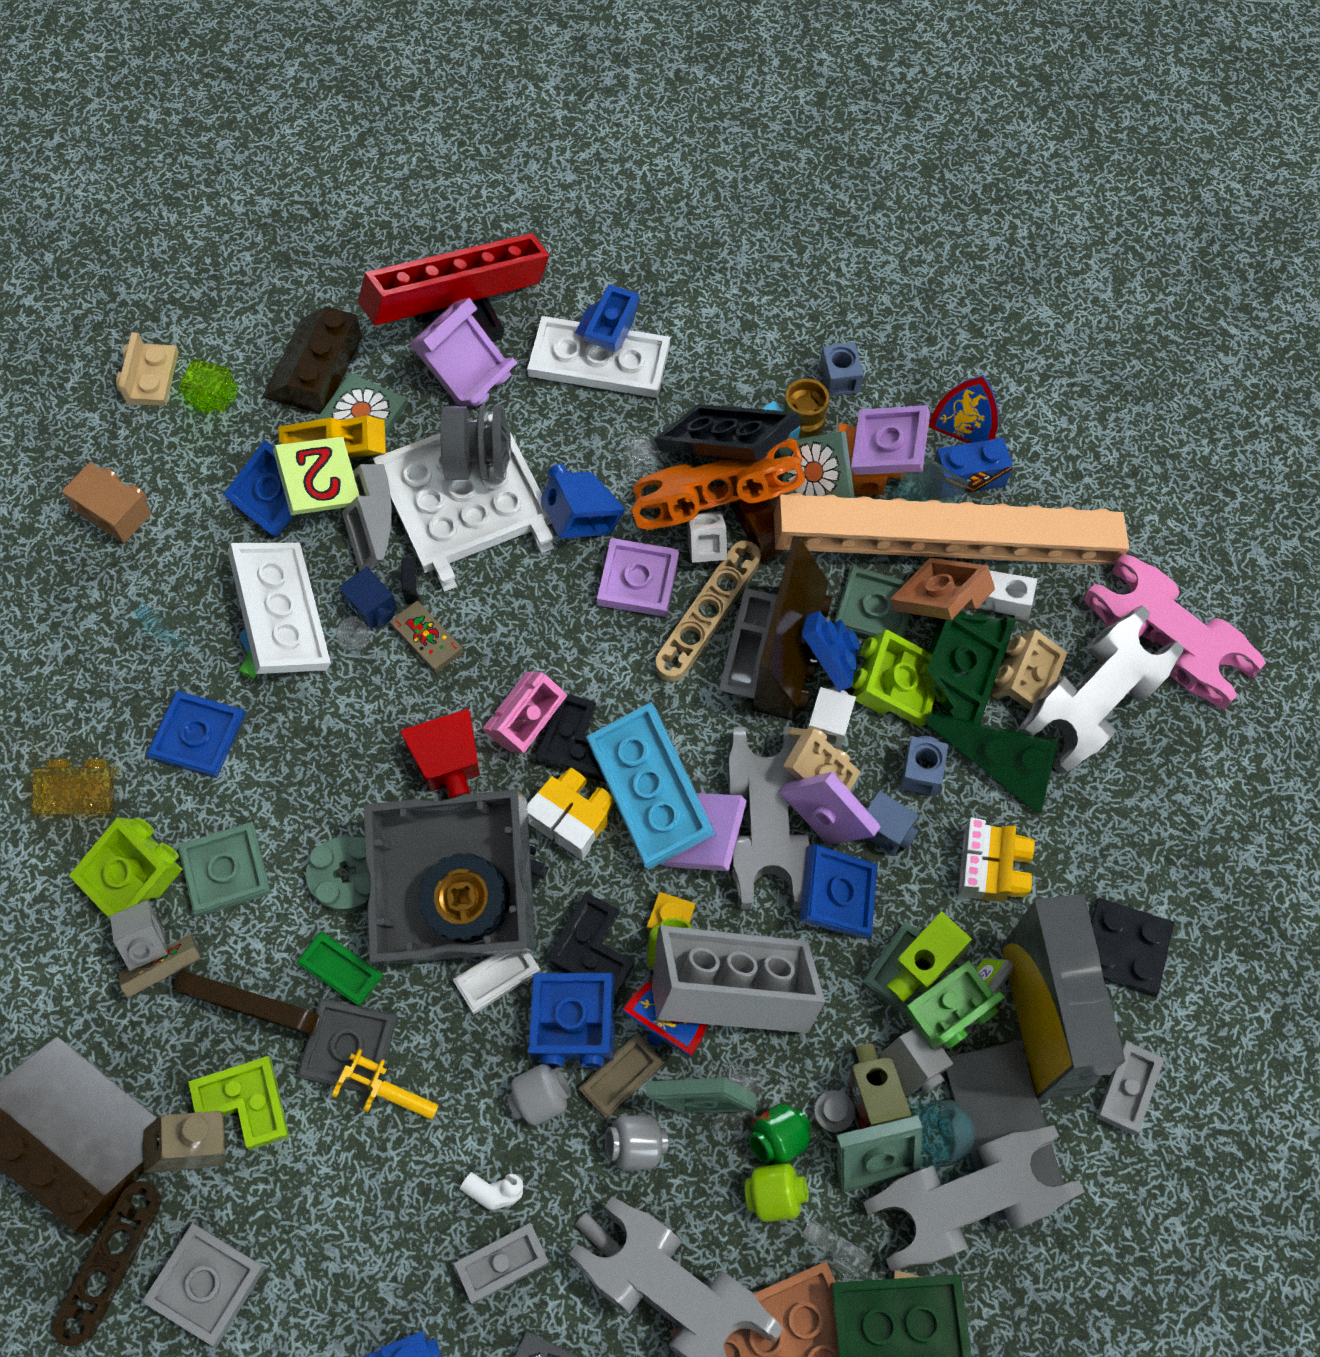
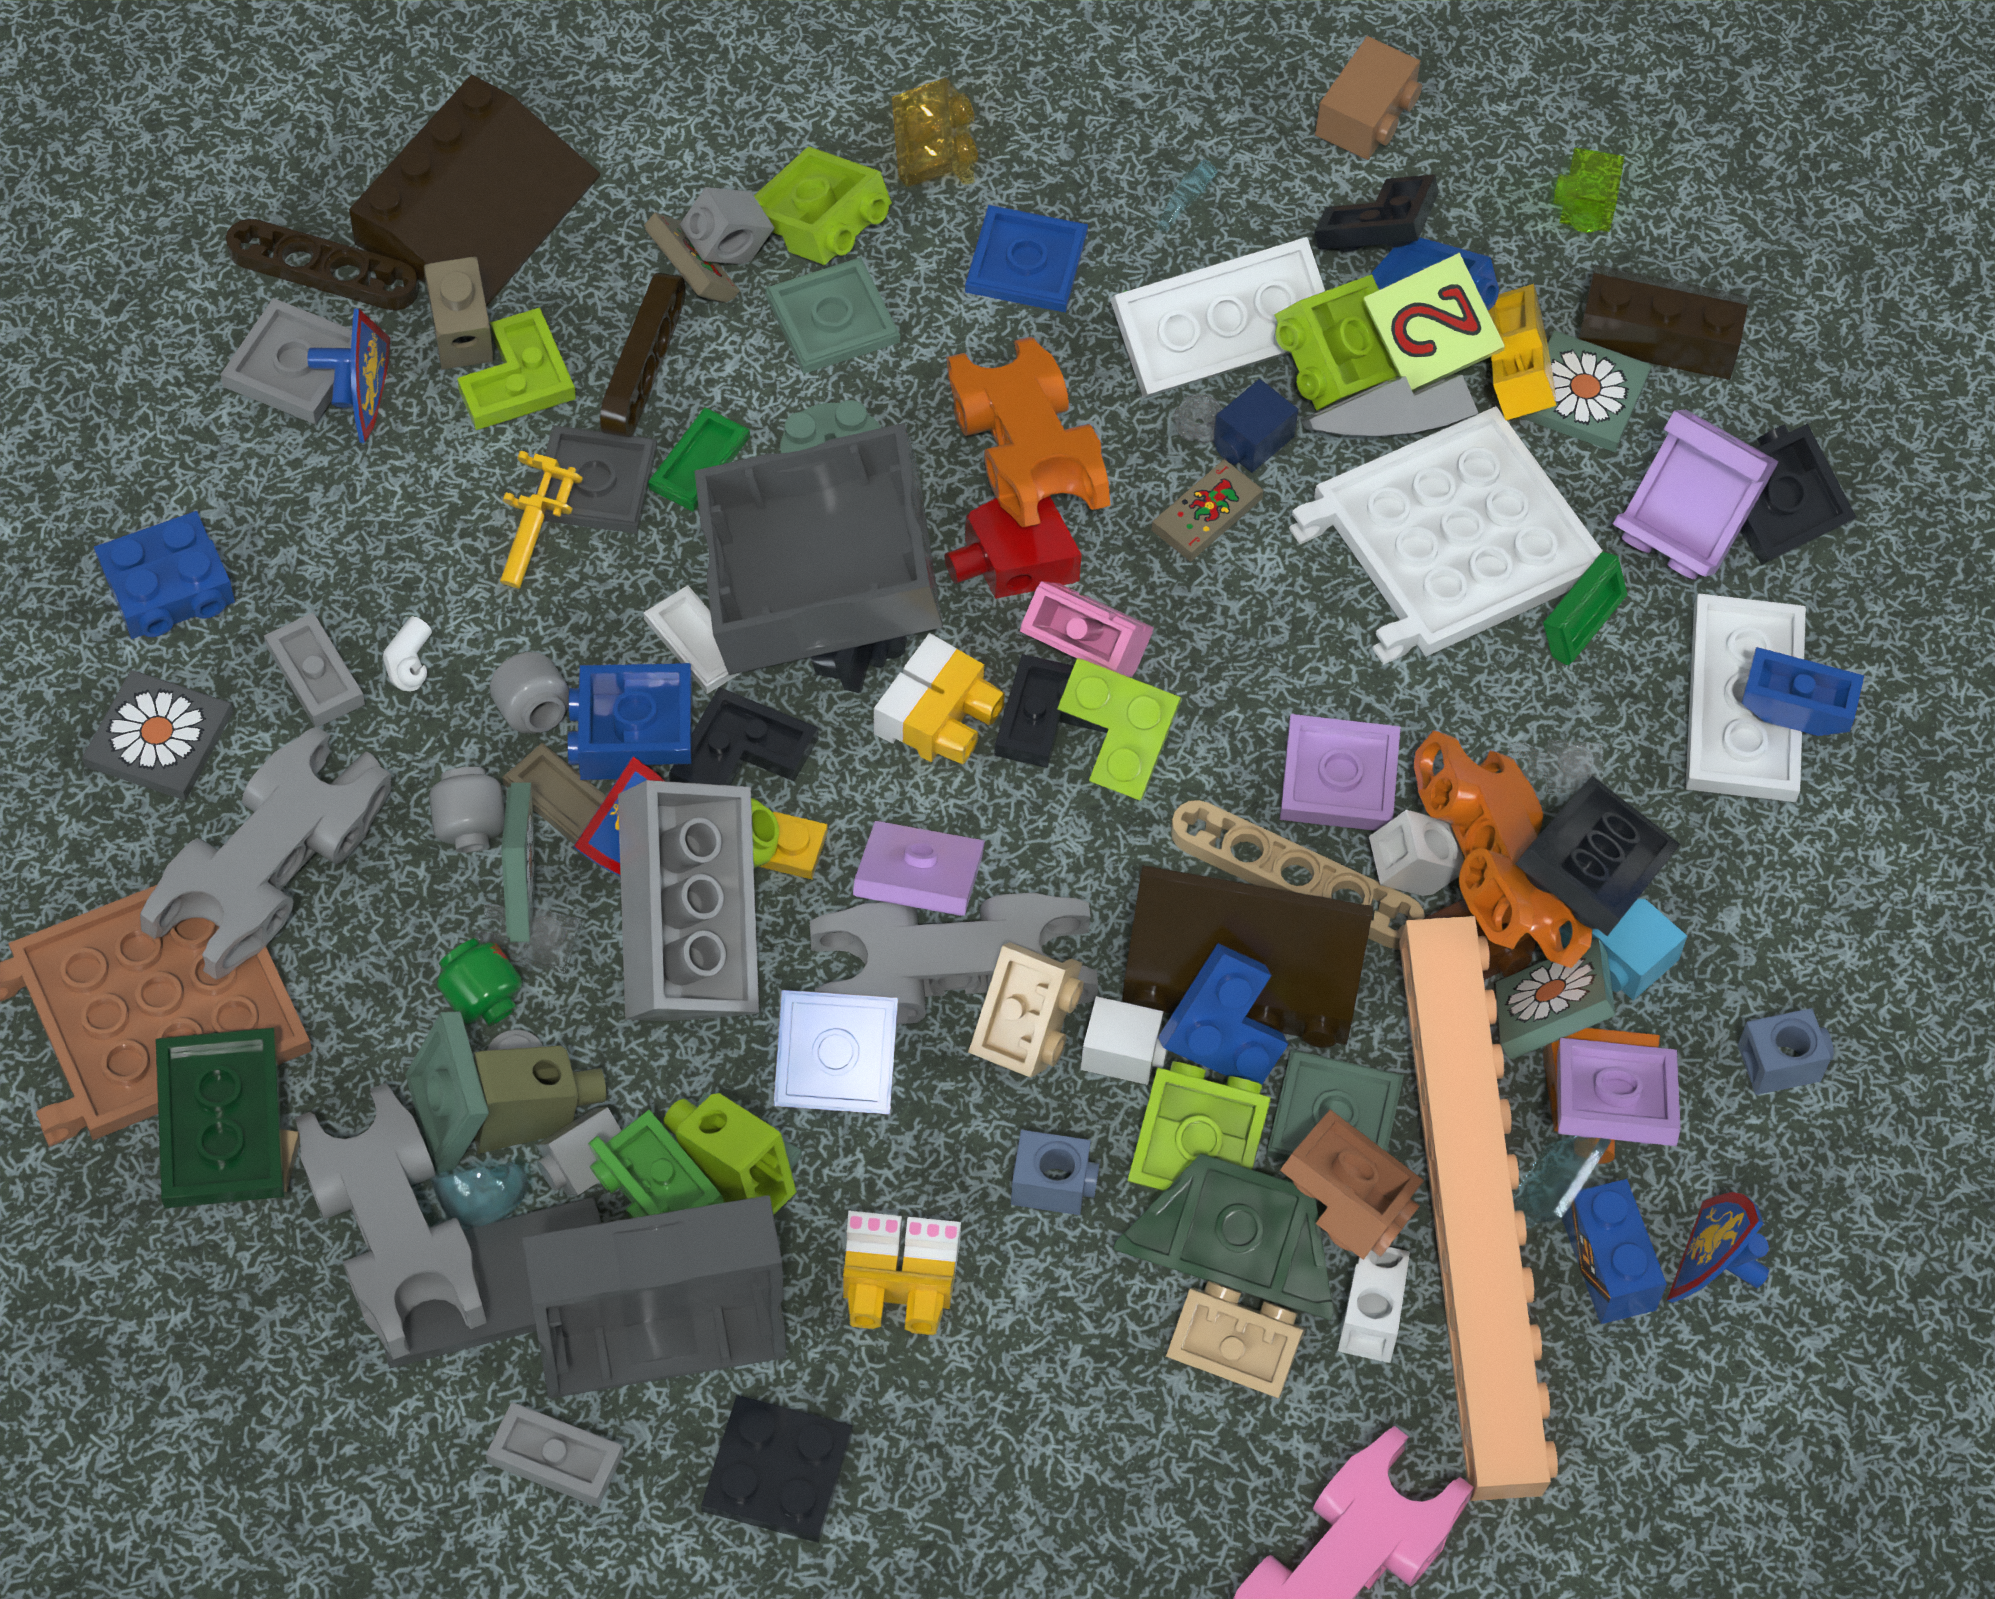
camera: 85 degrees right, 5 degrees down
(146, 372) = (1607, 114): tan bracket -> none
(215, 505) = (1392, 220): none -> black plate
(226, 1236) = (358, 371): none -> shield
(314, 539) = (1335, 343): none -> lime plate
(386, 726) = (1033, 448): none -> orange piece
(410, 580) = (1291, 475): black tile -> none
(450, 277) = (1823, 457): red brick -> none
(464, 897) = (789, 562): black wheel -> none
(474, 442) = (1516, 508): dark grey wheel -> none
(532, 428) = (1585, 608): none -> green tile
(579, 504) = (1450, 673): blue torso -> none
(599, 688) = (1136, 721): none -> lime plate
(650, 786) = (978, 787): medium azure tile -> none
(776, 1192) = (400, 975): lime head -> none
(810, 402) = (1685, 990): pearl gold wheel -> none
(830, 809) = (949, 1014): lavender plate -> none
(846, 1256) = (317, 1066): clear plate -> none
(895, 821) = (950, 1121): sand blue brick -> none
(1010, 757) = (1075, 1291): dark green wing -> none
(1082, 708) = (1244, 1459): piece -> none

